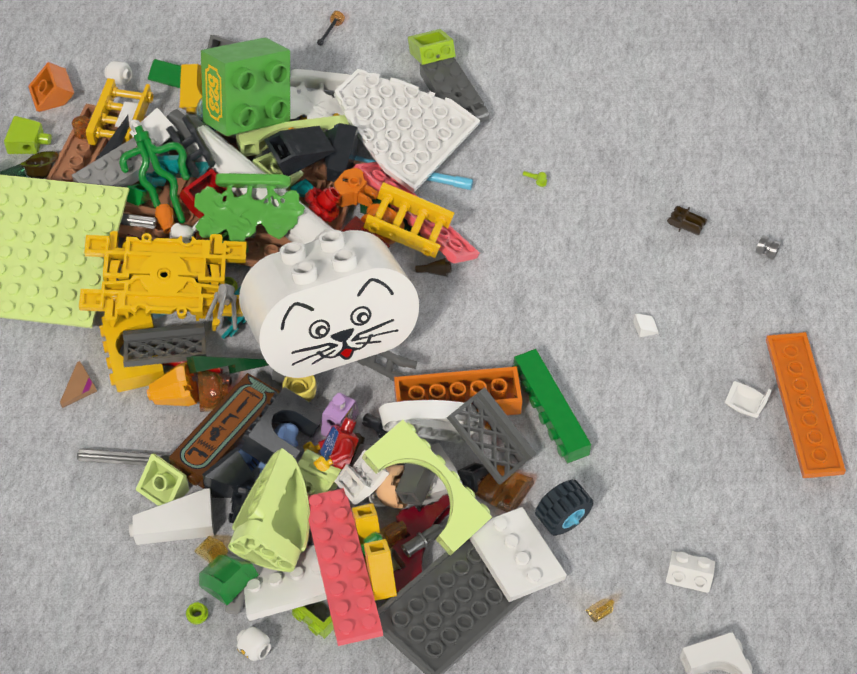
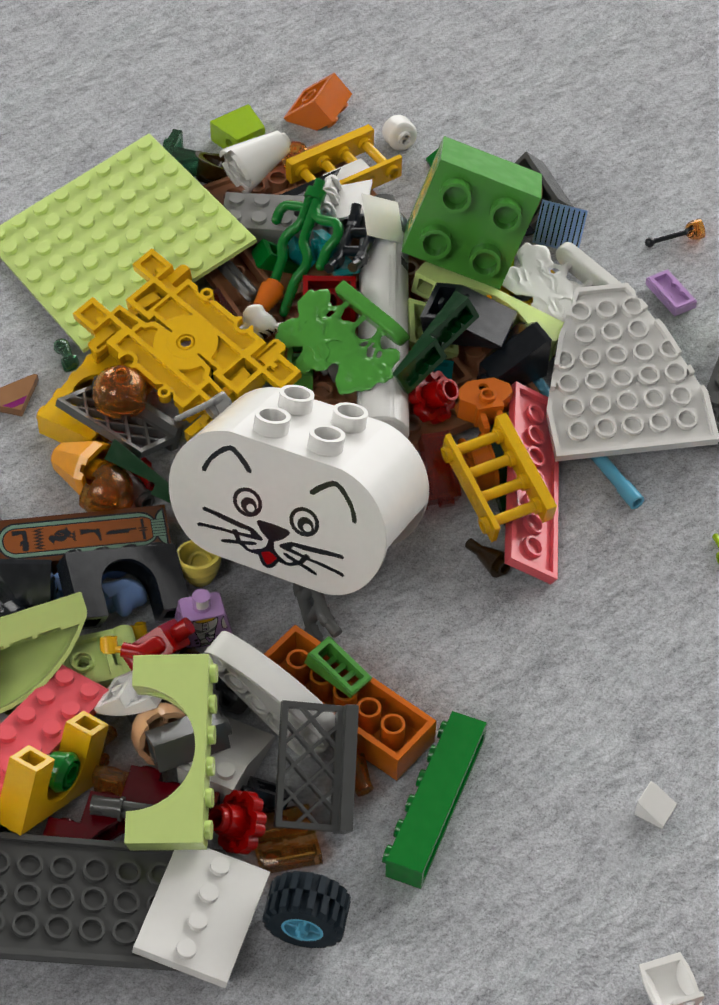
camera: 45 degrees right, 5 degrees down
(67, 145) = (254, 159): none -> white cone
(88, 339) = (69, 361): none -> clear green arm
(153, 331) = (119, 391): none -> clear orange cylinder
(196, 124) = (382, 218): none -> white sticker
(308, 177) = (430, 347): none -> dark green slope
(363, 61) = (671, 292): none -> lavender plate
(437, 386) = (337, 654): none -> bright green slope
(486, 491) = (239, 821): none -> red plant

